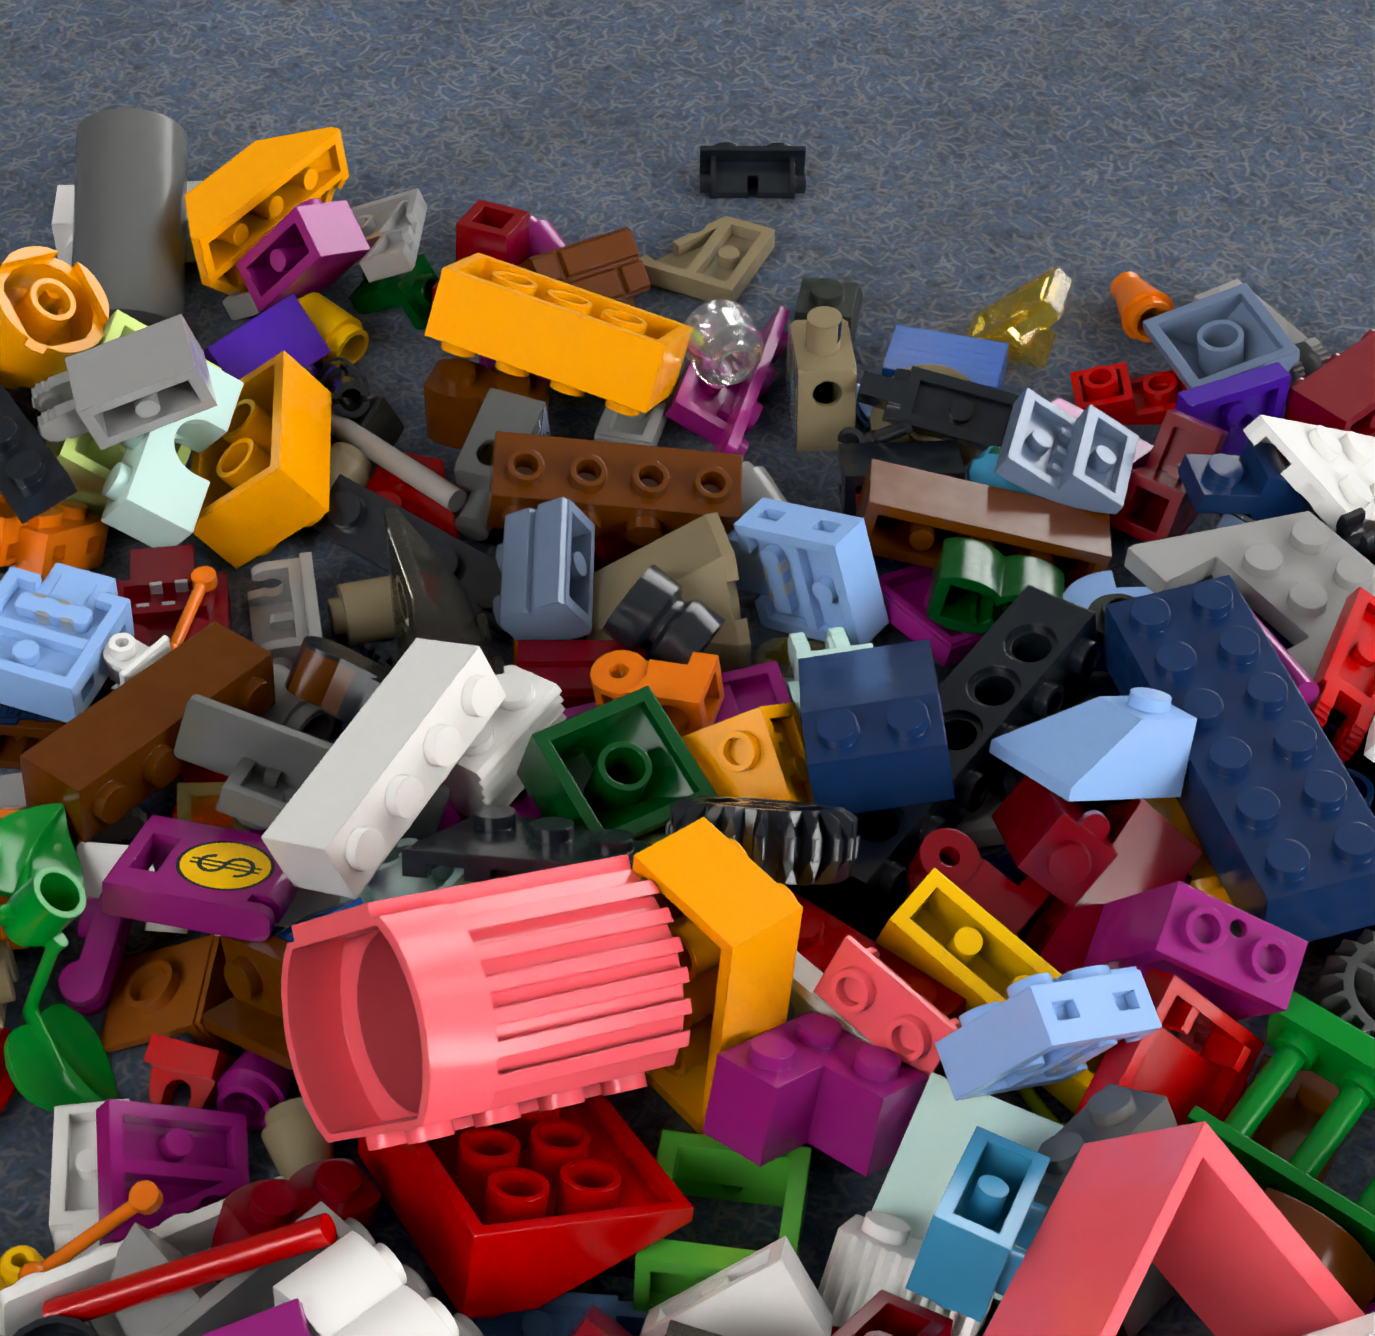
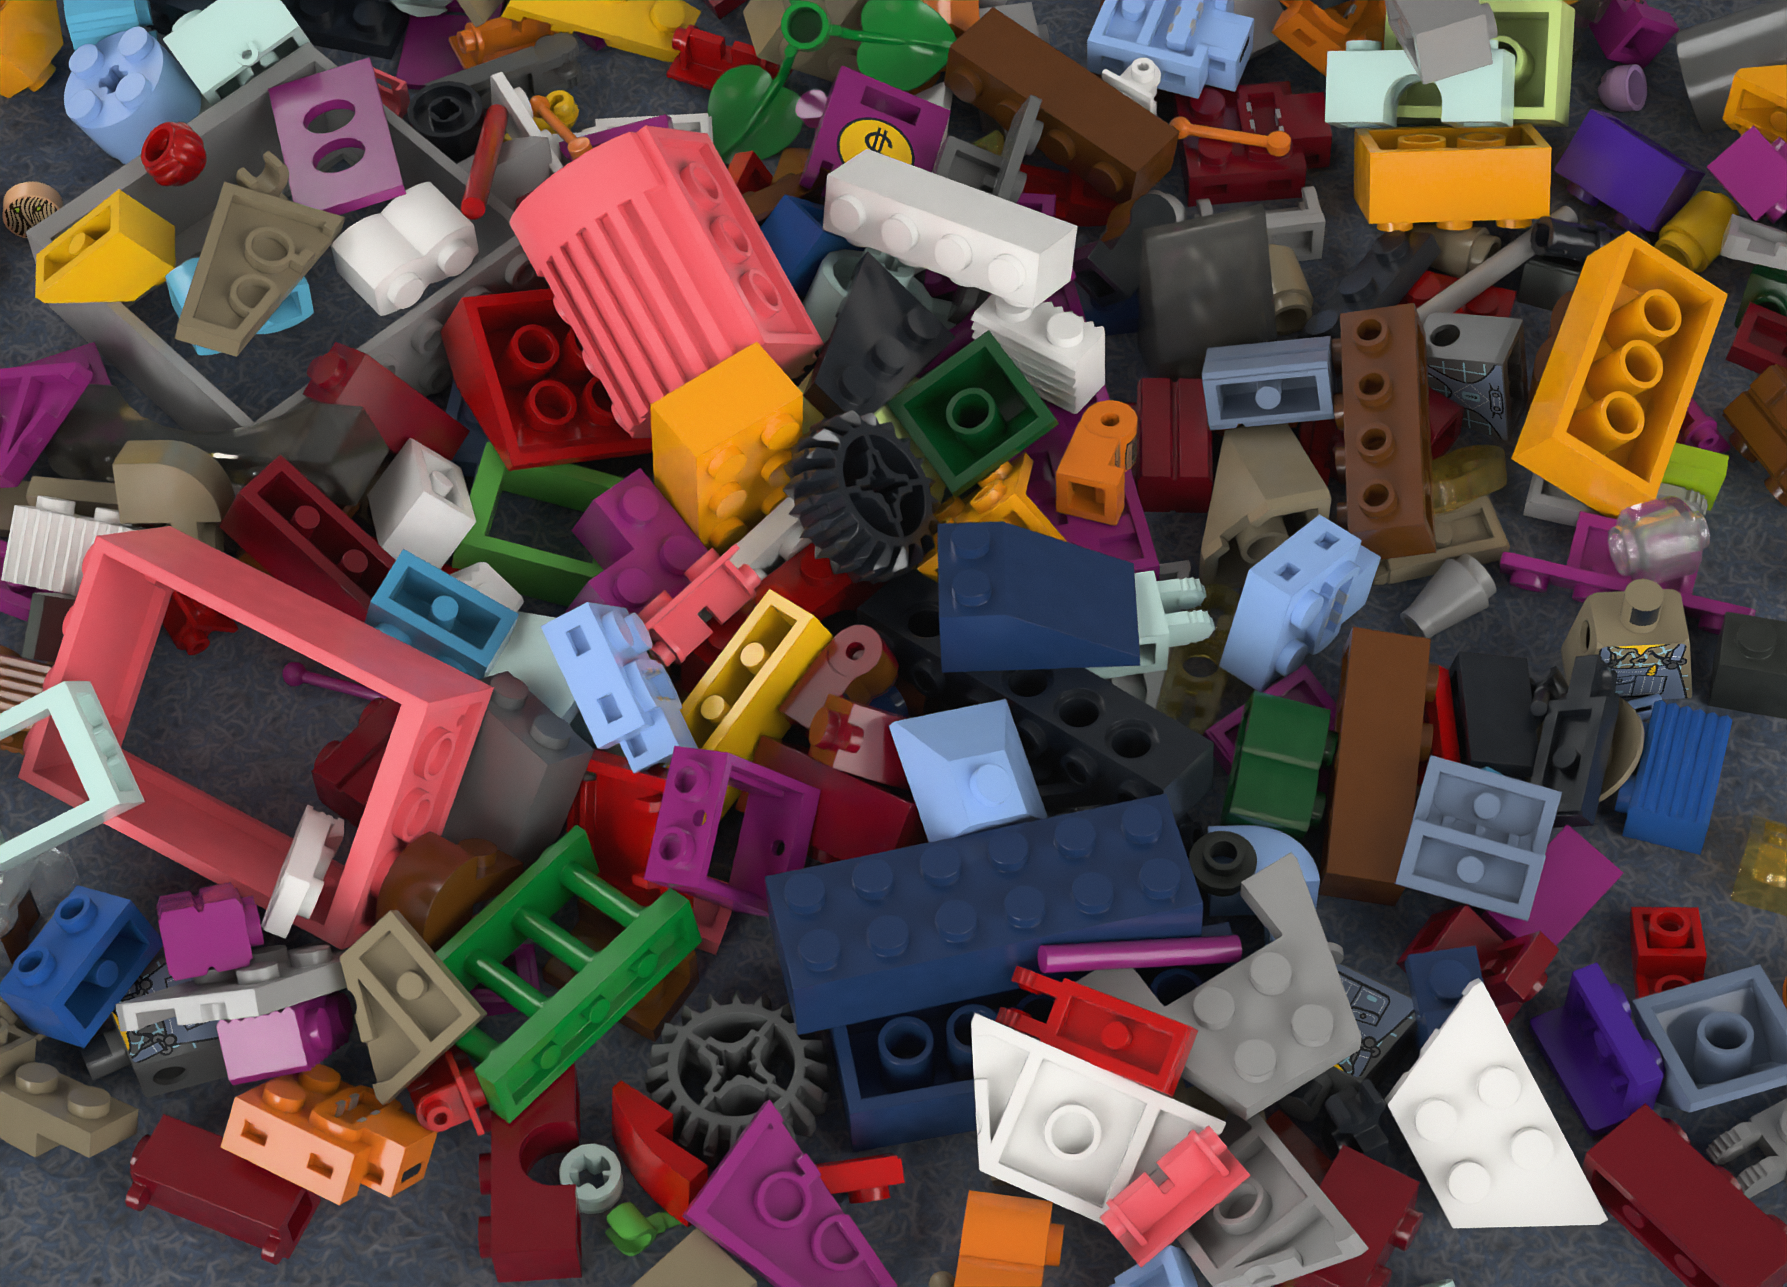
camera: 95 degrees right, 10 degrees up
(660, 621) = (1191, 468): black wheel -> none

